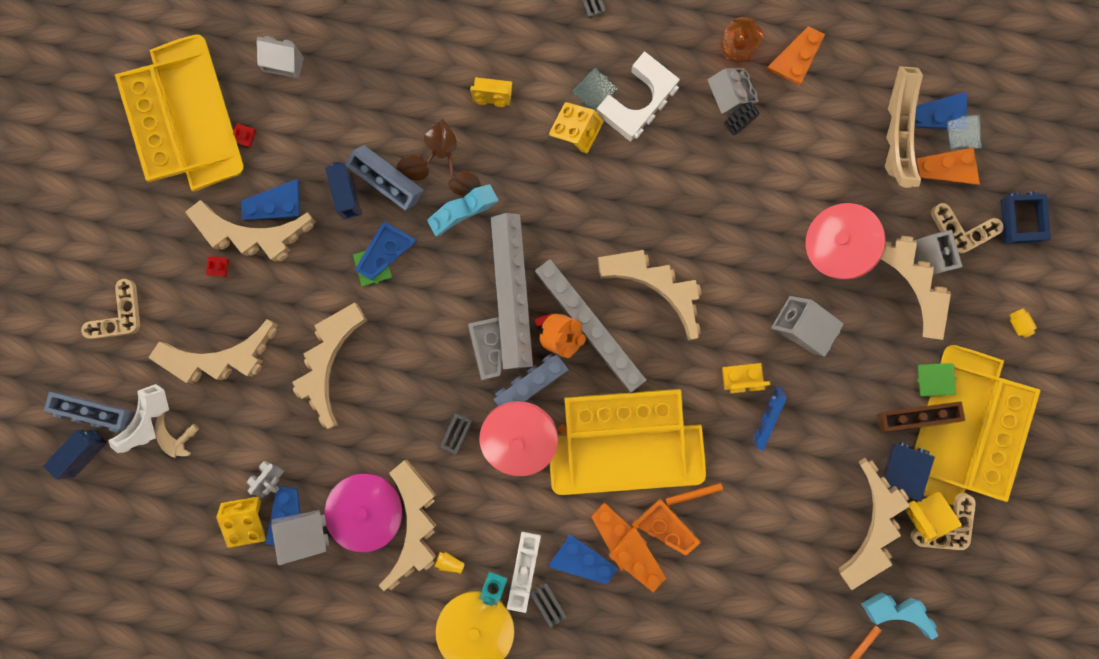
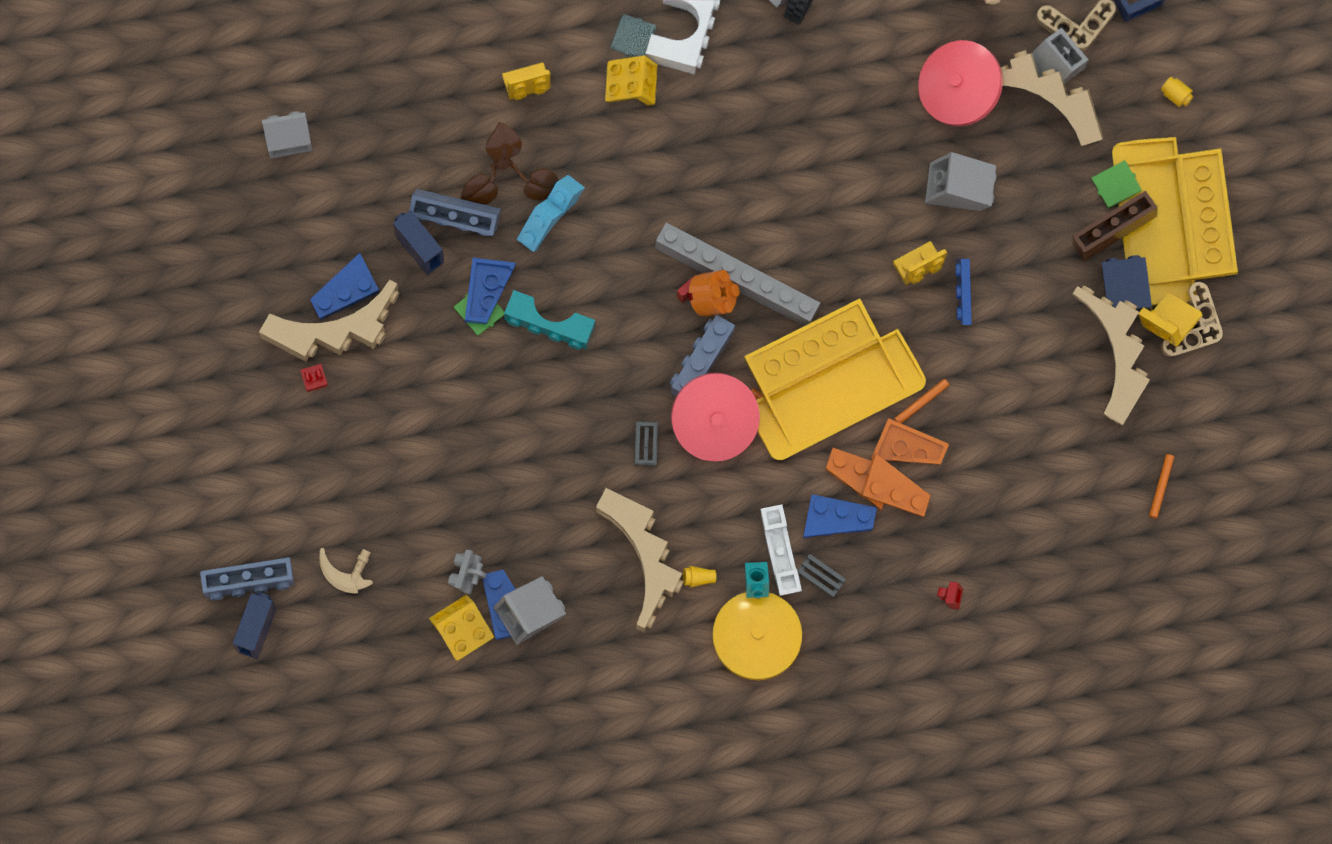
camera: 30 degrees left, 10 degrees down
(121, 321) = (234, 477): tan beam -> none
(140, 431) = (312, 573): white arch -> none
(180, 115) = (206, 237): yellow slope -> none
(218, 365) = (361, 476): tan arch -> none
(244, 135) = (280, 232): red tile -> none
(315, 384) = (474, 453): tan arch -> none
(363, 512) = (585, 564): dark pink dish -> none
(405, 282) = (575, 330): none -> teal arch
(487, 347) = (638, 339): light grey wing -> none
(511, 291) = (640, 273): light grey brick -> none
(680, 295) = (817, 206): tan arch -> none
(881, 609) = (1195, 425): medium azure arch -> none

